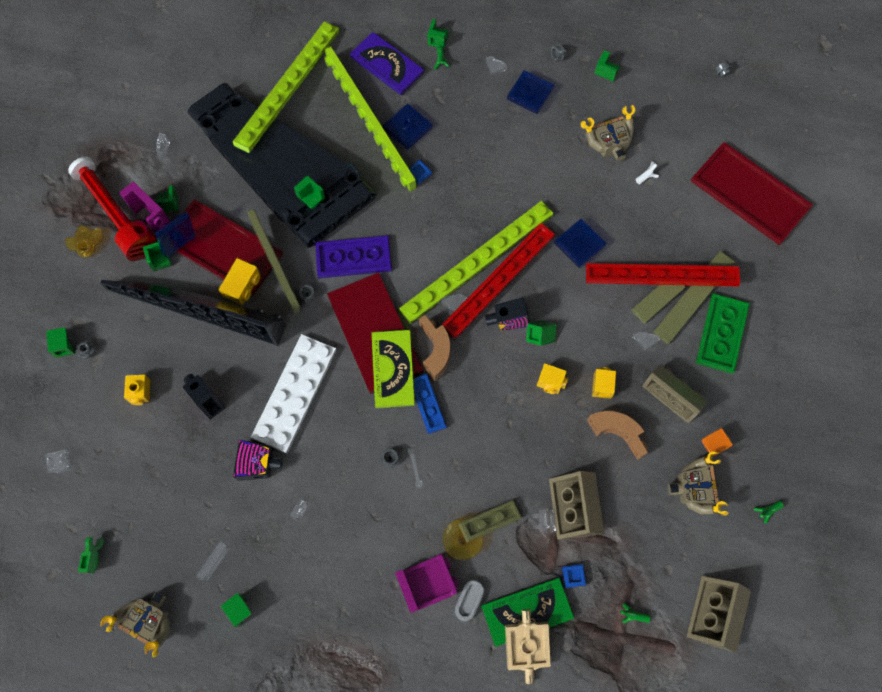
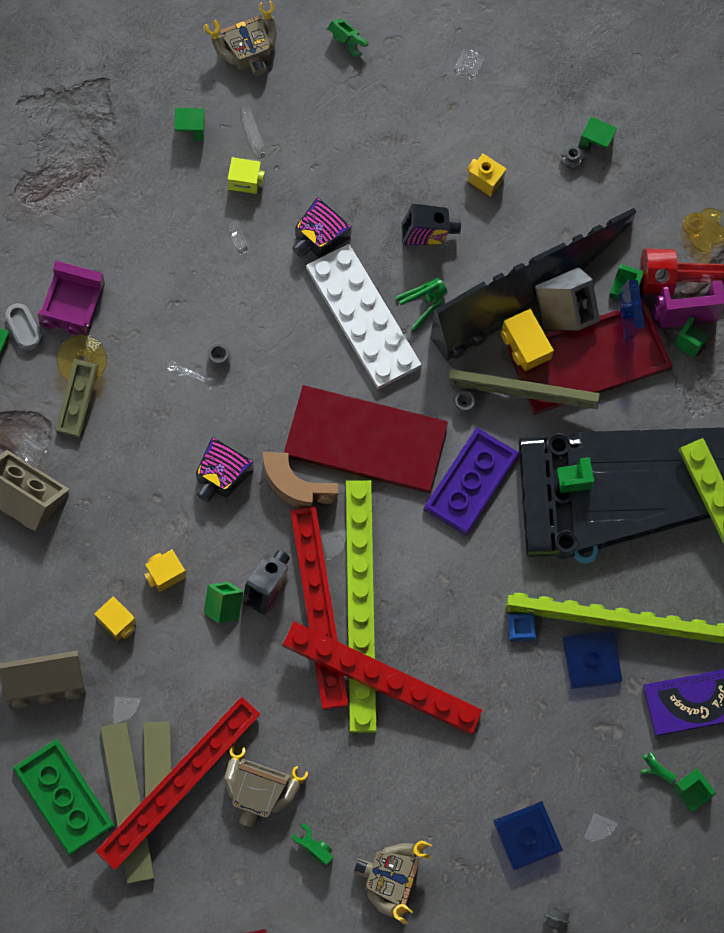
camera: 120 degrees right, 0 degrees up
(195, 274) = (568, 301): none -> flat silver slope
(247, 363) = (430, 291): none -> green plant
(250, 540) = (245, 175): none -> neon yellow brick
(392, 369) = (307, 422): lime tile -> none
(428, 404) = (244, 432): blue tile -> none
(464, 395) = (221, 470): none -> torso
(512, 217) = (382, 678): none -> red plate
(580, 243) = (290, 730): clear blue plate -> none
(622, 425) = (59, 599): medium nougat arch -> none
(627, 231) = (258, 788): none -> dark tan torso
(630, 181) = (319, 851): none -> green plate
(647, 174) = (313, 883): white bar -> none

